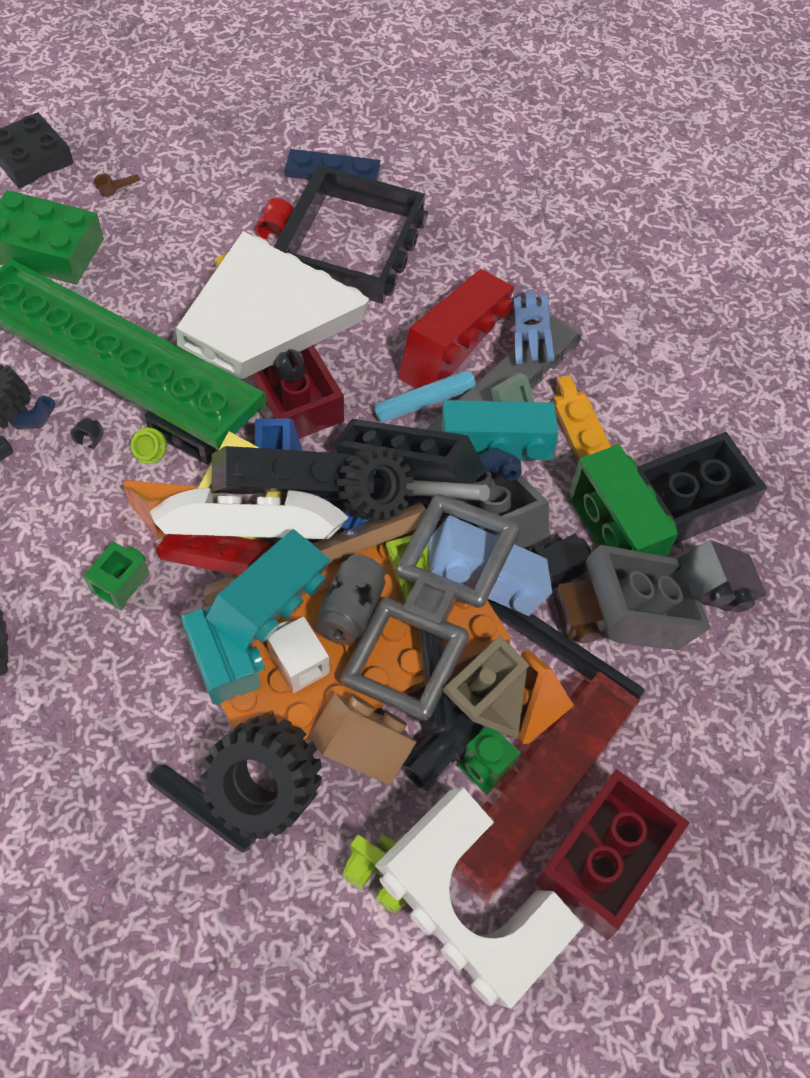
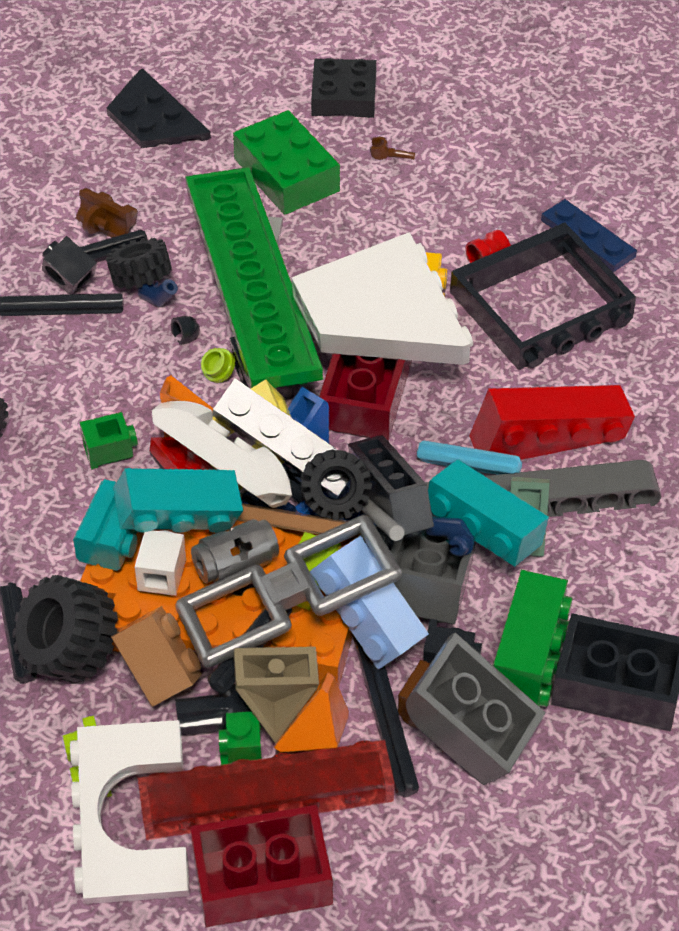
camera: 45 degrees right, 10 degrees down
(284, 367) = (374, 367): black hinge -> none
(532, 333) = (632, 443): medium blue piece -> none
(578, 419) = (589, 562): light orange hinge -> none
(722, 576) = (565, 746): black brick -> none

